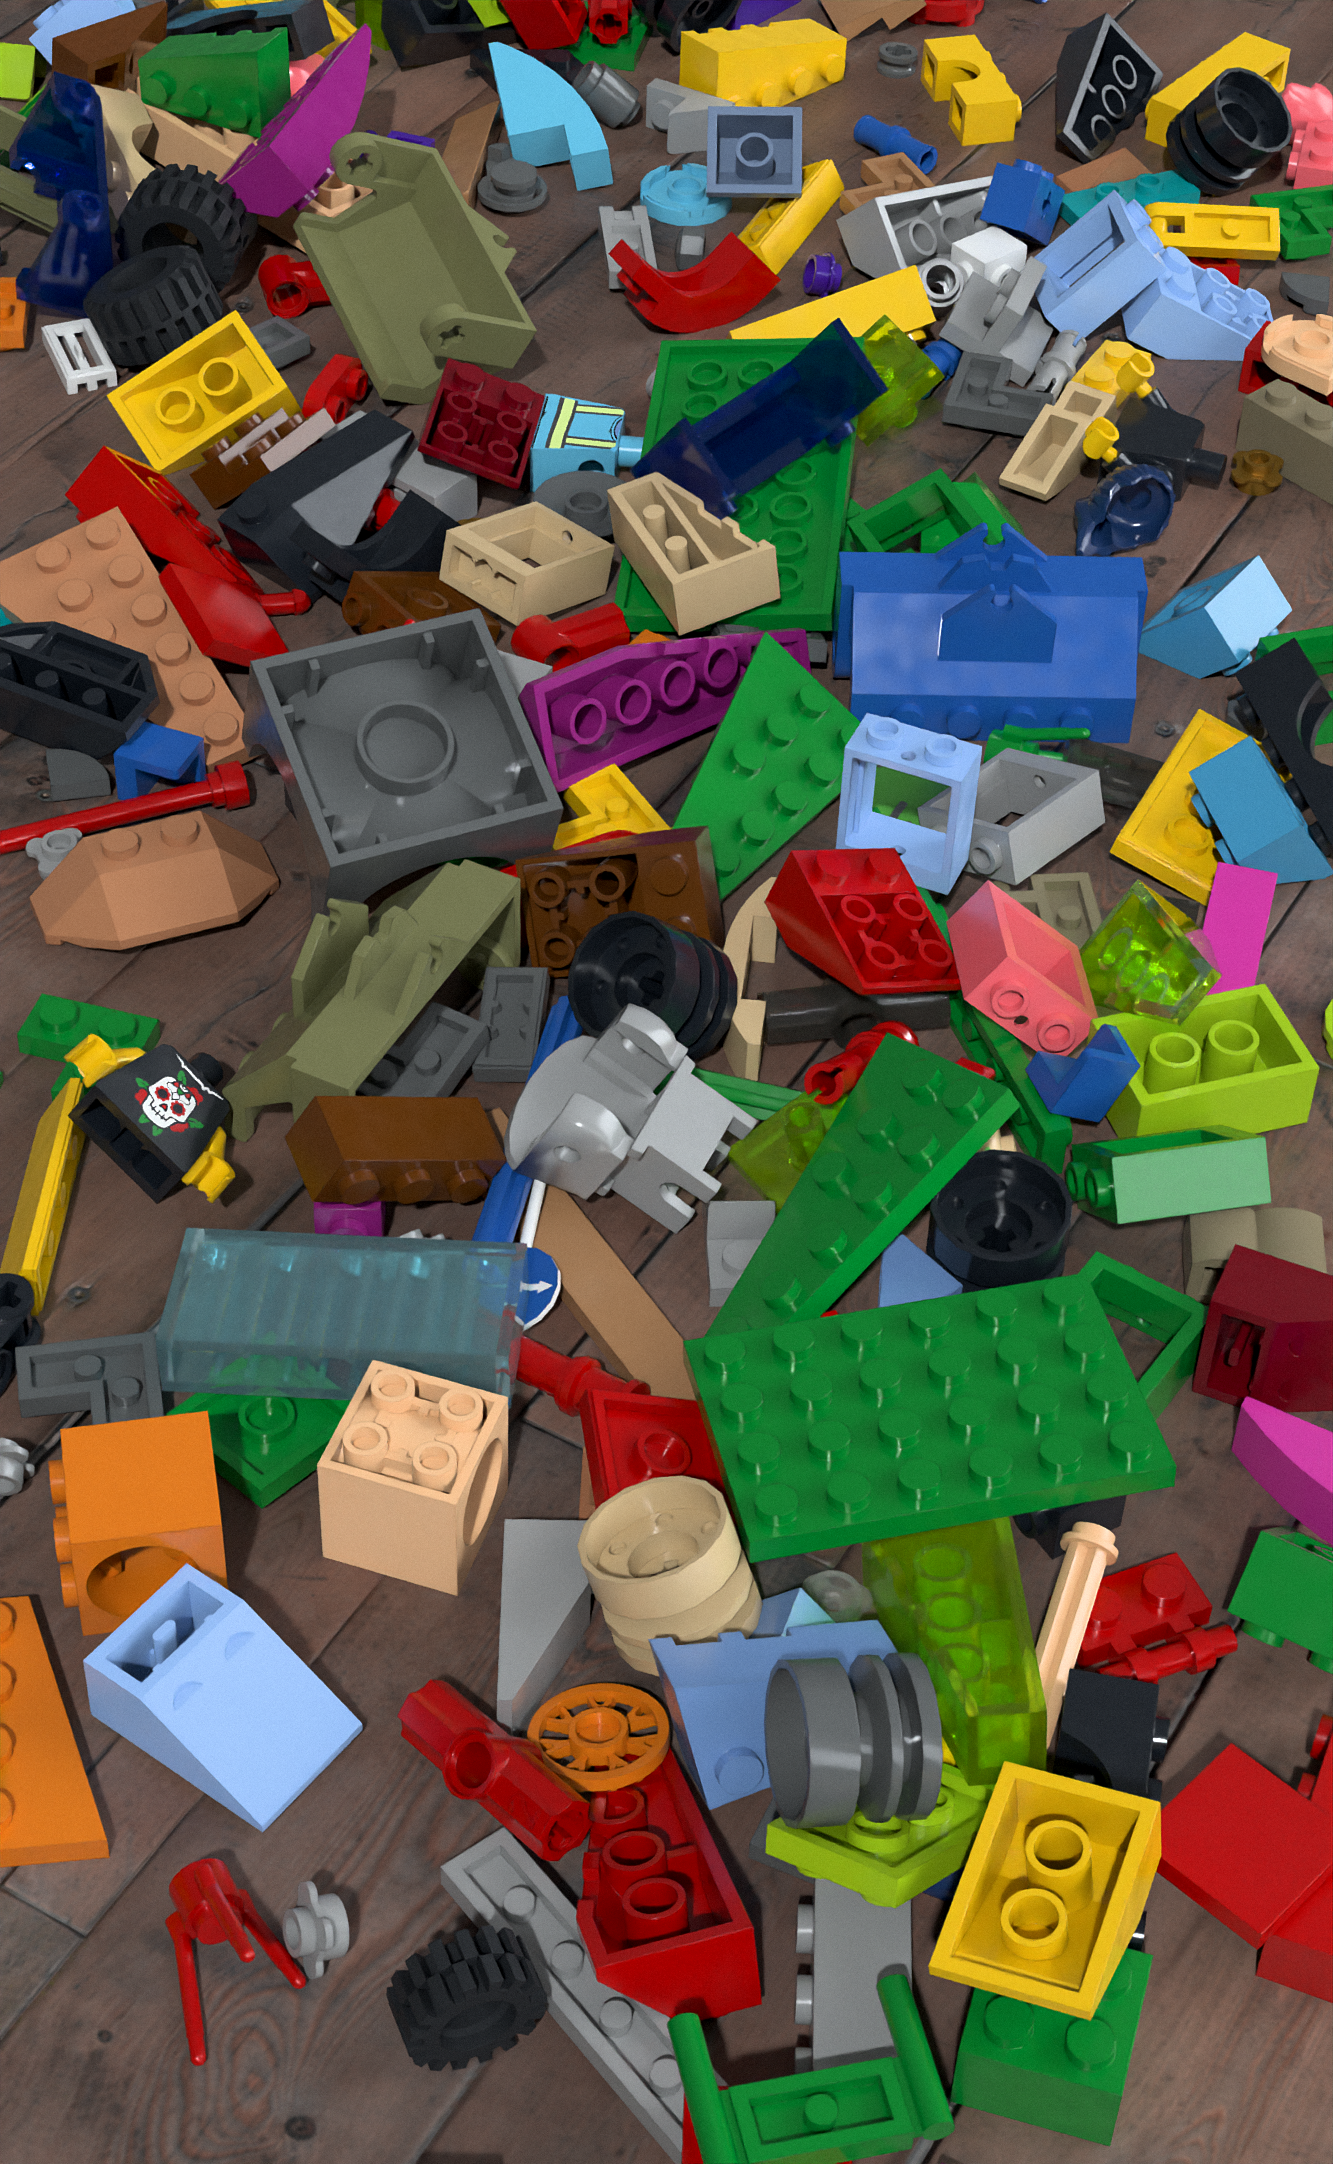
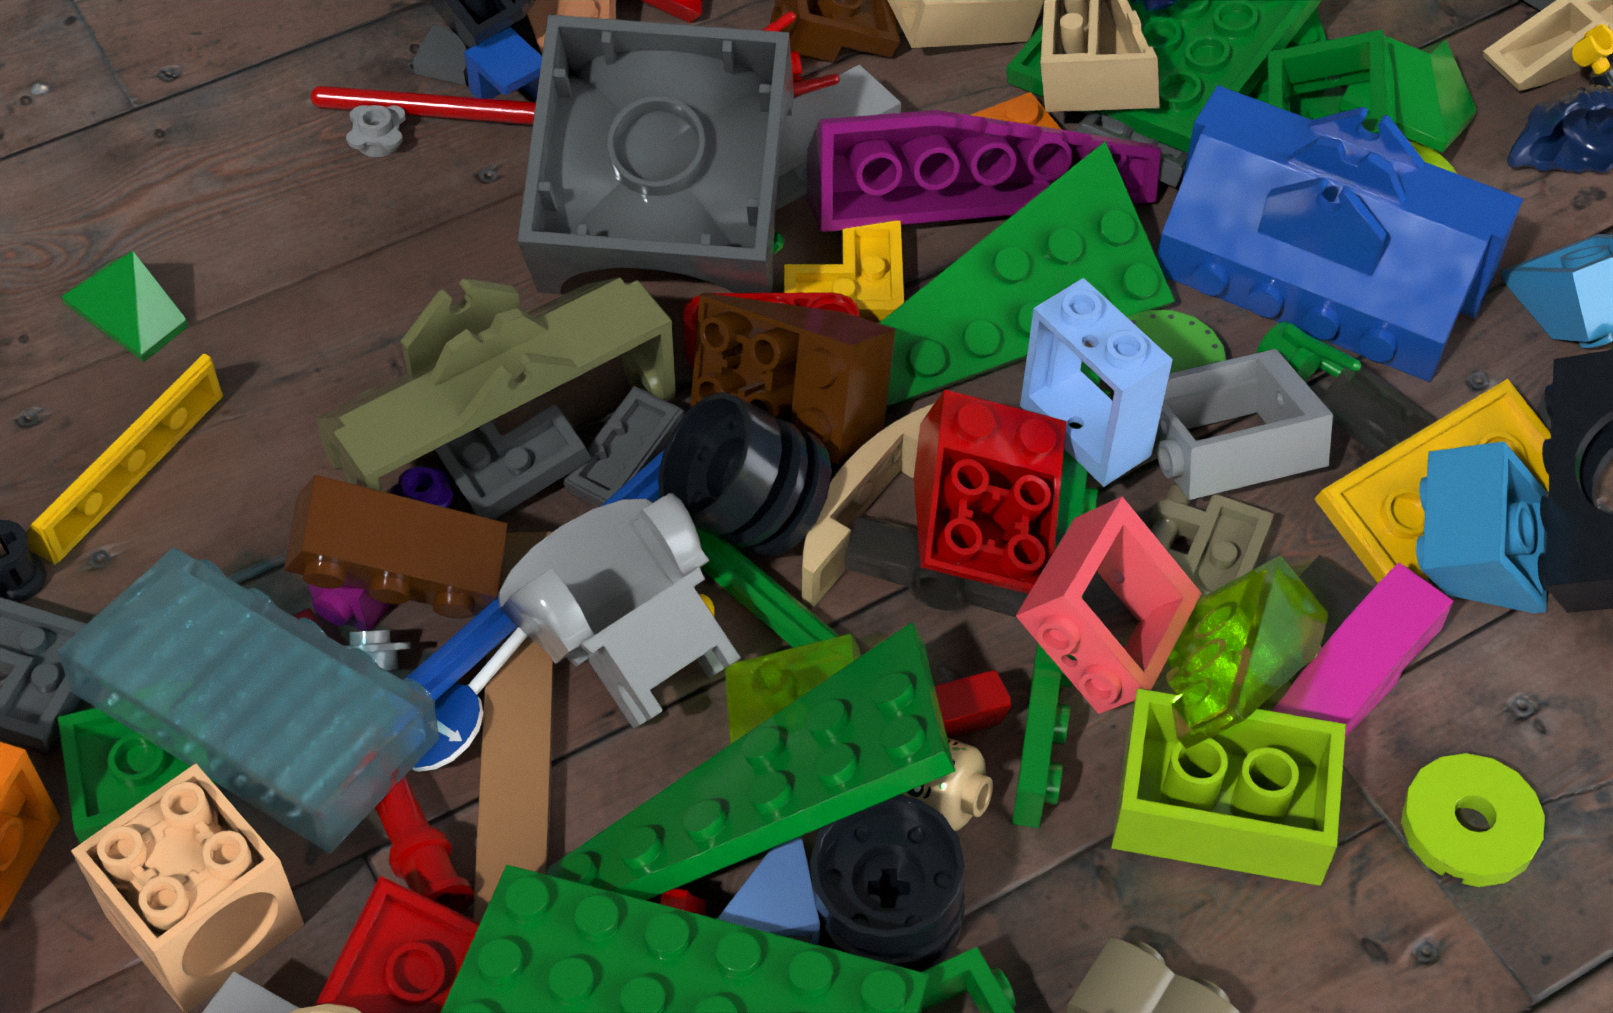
camera: 30 degrees right, 10 degrees up
(62, 1023) = (278, 333): green plate -> none
(153, 883) = (423, 189): nougat wedge -> none
(155, 1115) = (246, 417): black torso -> none
(571, 638) = (936, 81): red piece -> none
(731, 1238) = (670, 749): light grey slope -> none
(841, 1073) = (945, 626): red pin -> none
(1088, 1084) = (1087, 751): blue panel -> none
(1169, 1174) = (1107, 893): window -> none

